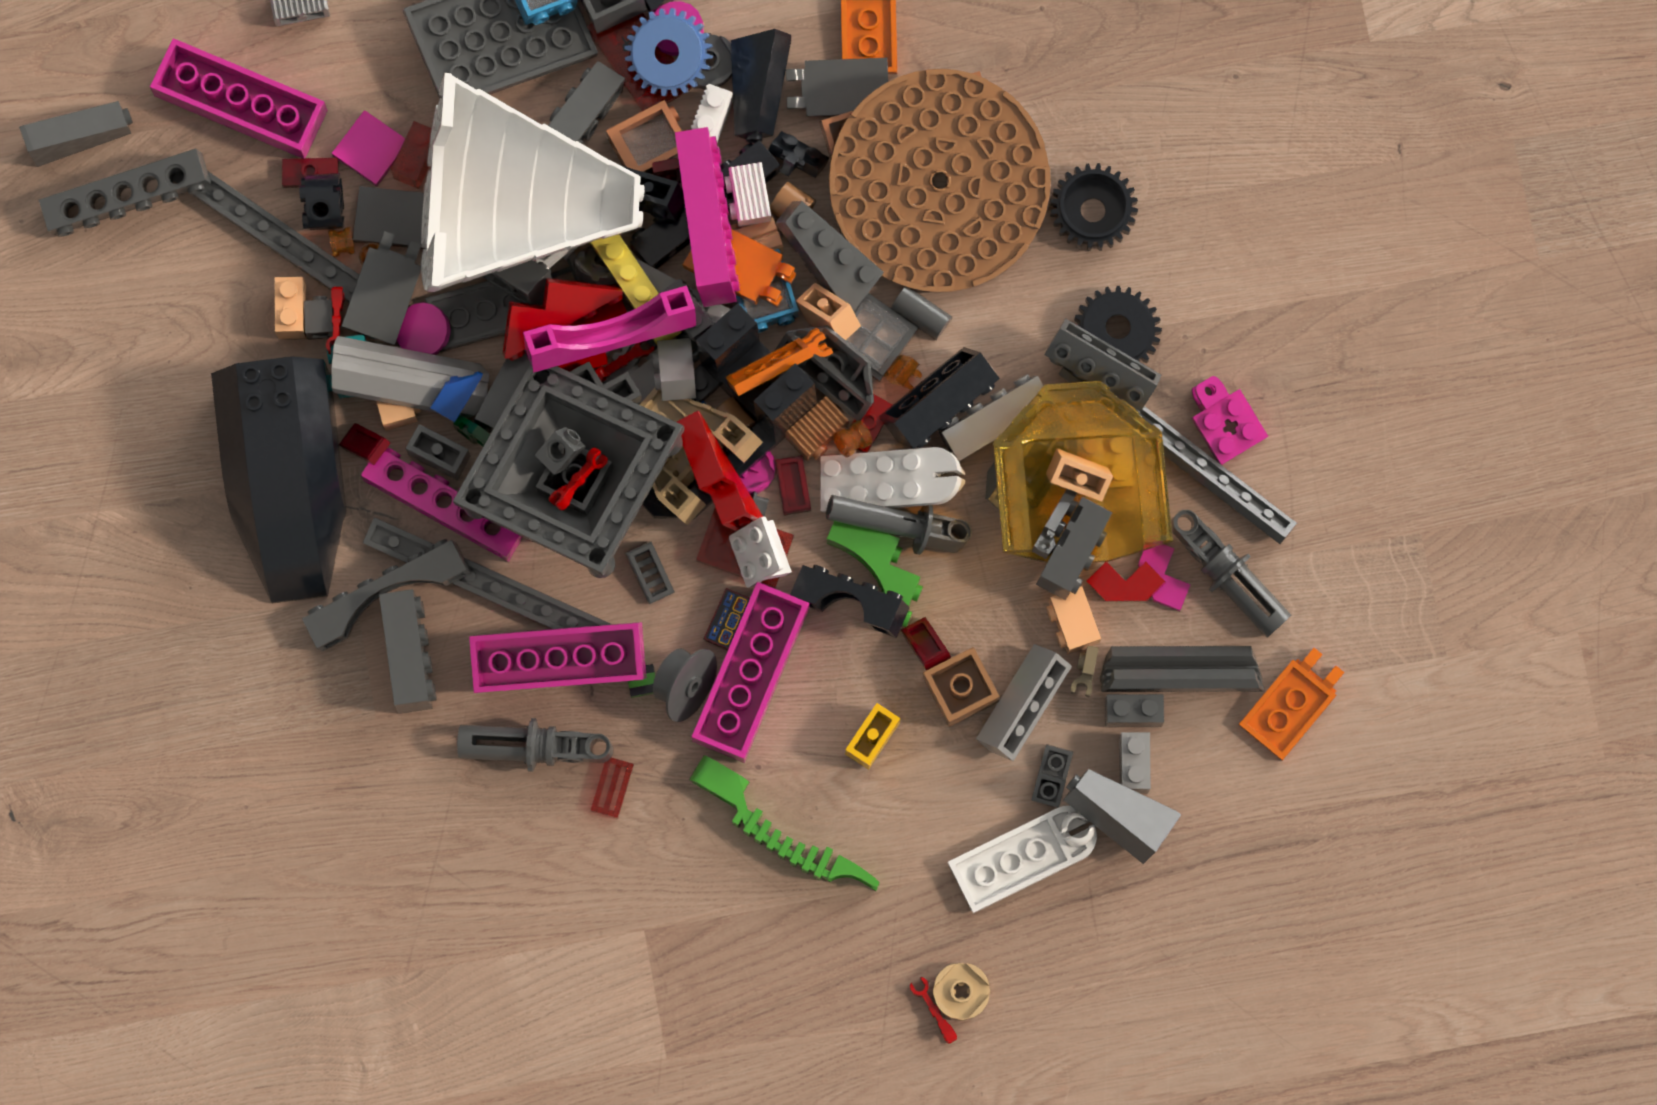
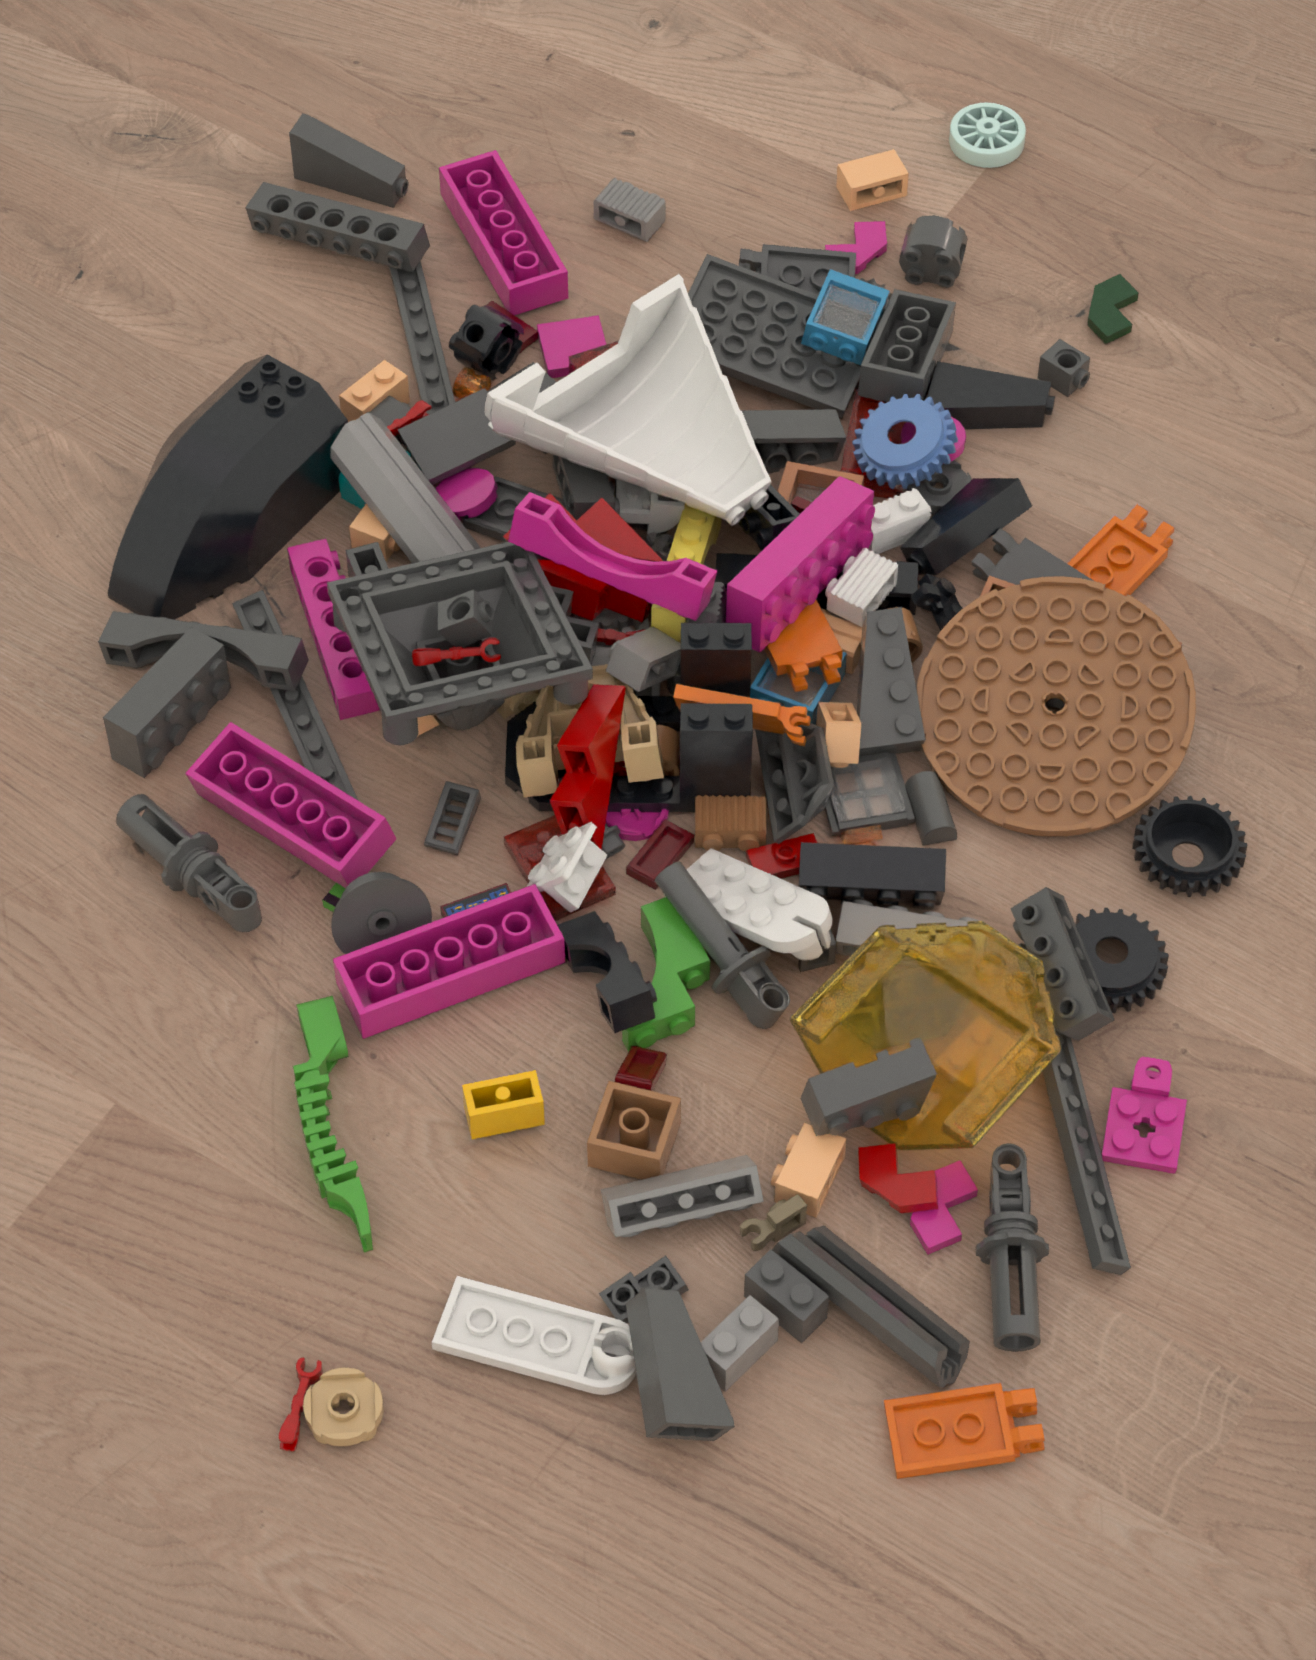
camera: 45 degrees right, 25 degrees down
(364, 443) = (318, 530): dark red tile -> none
(455, 395) = (431, 541): blue slope -> none
(606, 809) = (226, 964): clear red tile -> none
(853, 438) = (753, 846): clear orange wheel -> none
(1046, 544) = (865, 1049): dark grey hinge -> none
(1079, 475) = (940, 1030): light nougat brick -> none

